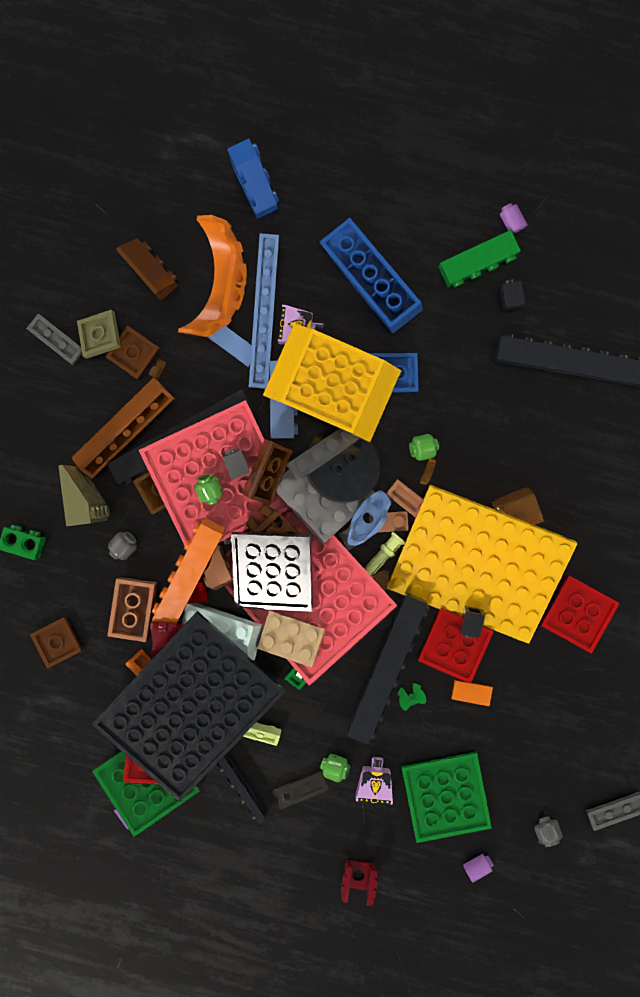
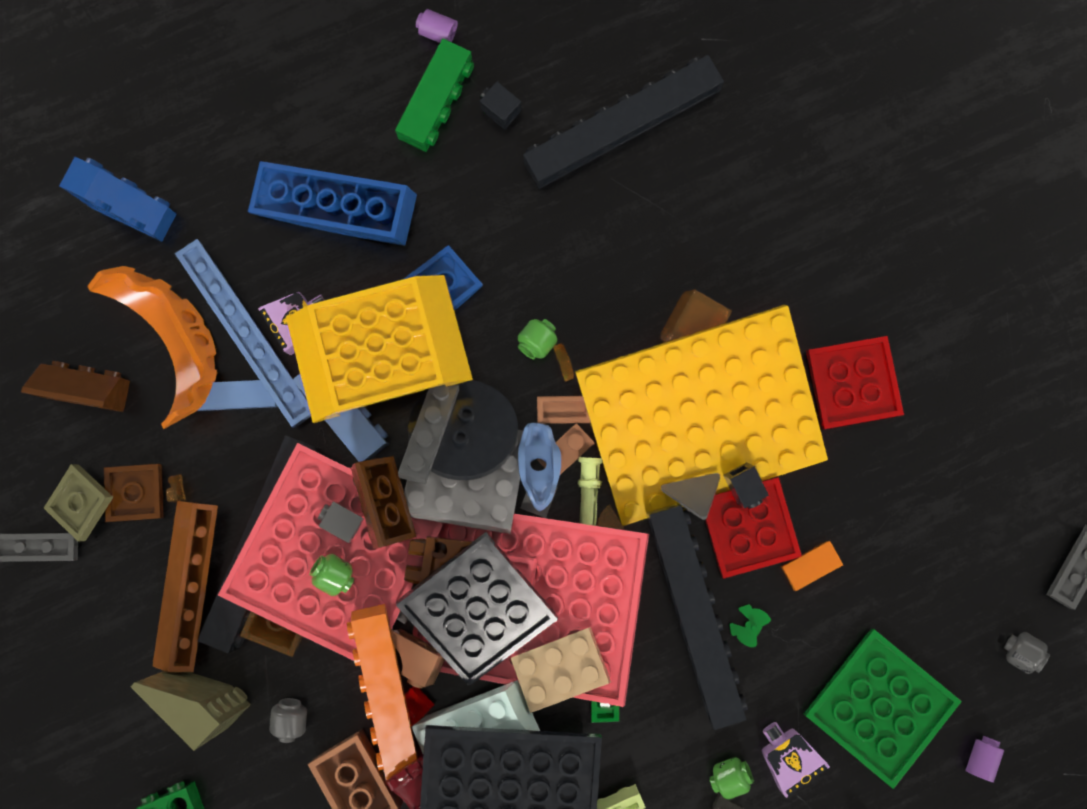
camera: 40 degrees left, 5 degrees down
(440, 603) = (694, 493): none -> dark grey piece

